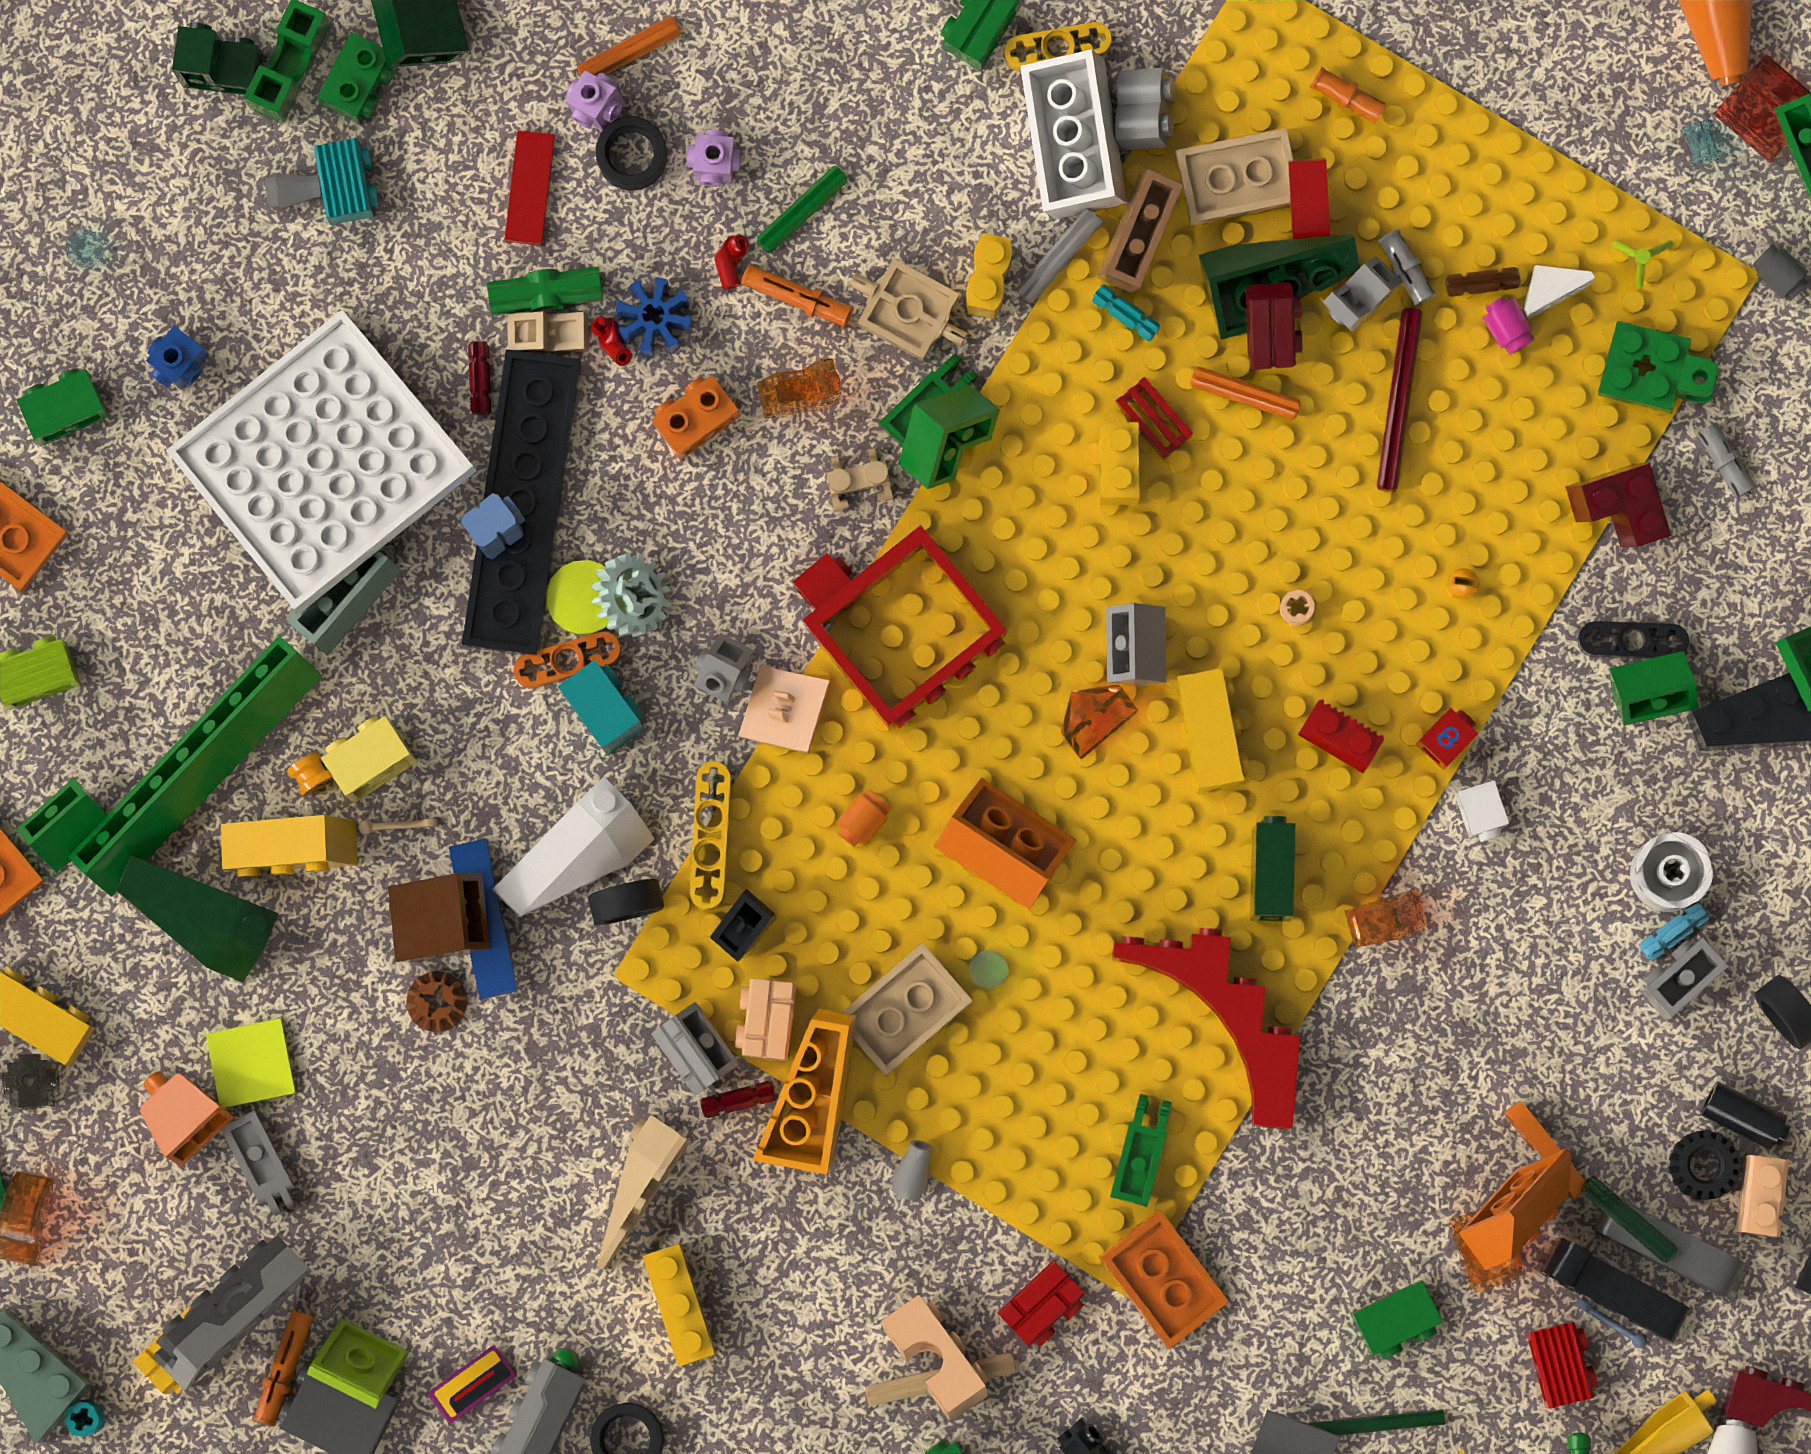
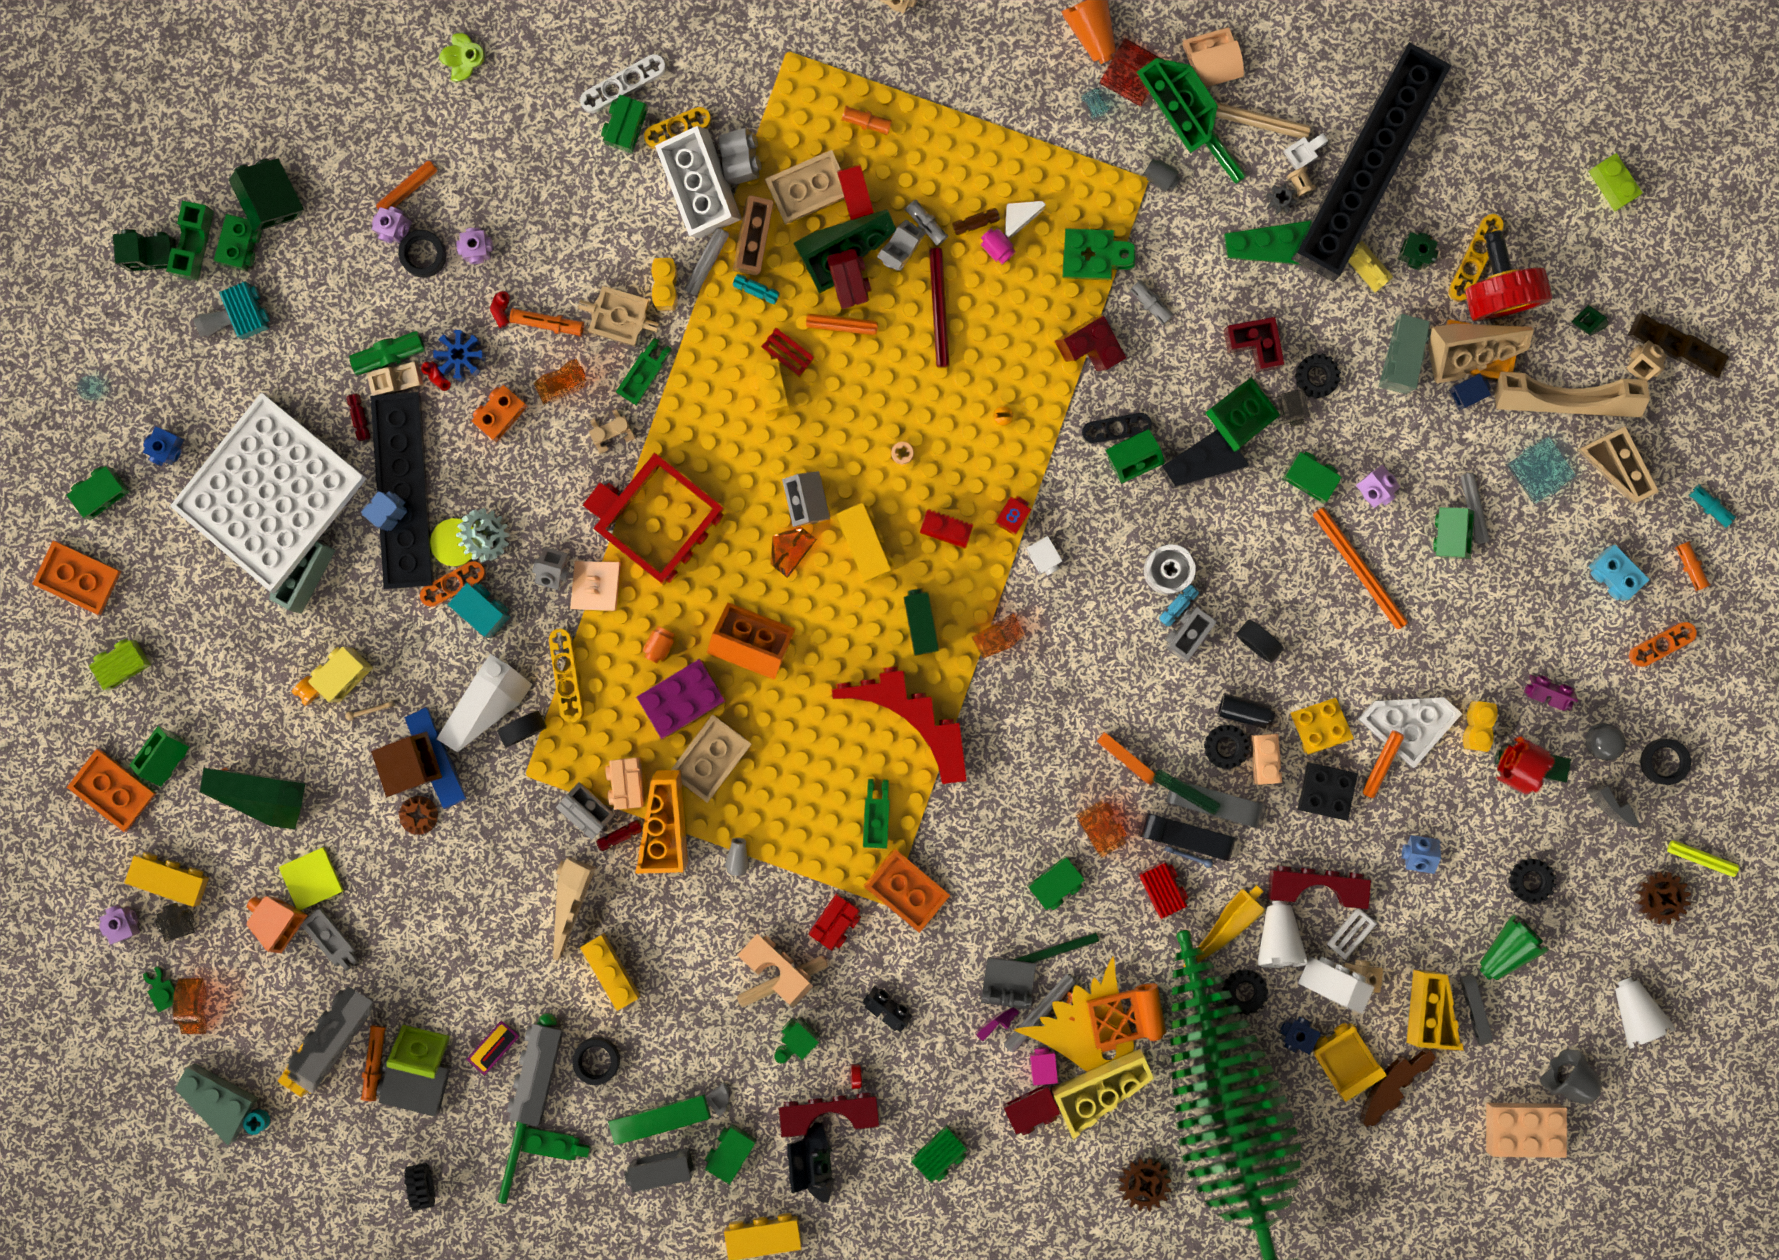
camera: 15 degrees left, 5 degrees up
(196, 764) = (233, 700): green brick -> none
(288, 845) = (303, 738): yellow wedge -> none
(529, 188) = (363, 289): red tile -> none
(743, 925) = (598, 727): black slope -> none
(802, 209) = (538, 266): green axle -> none
(880, 908) = (681, 699): none -> magenta brick
(942, 430) = (656, 388): green brick -> none
(988, 969) = (757, 721): clear light blue tile -> none
(1518, 1210) = (1116, 802): orange slope -> none
(1641, 257) = (1072, 184): lime plant -> none

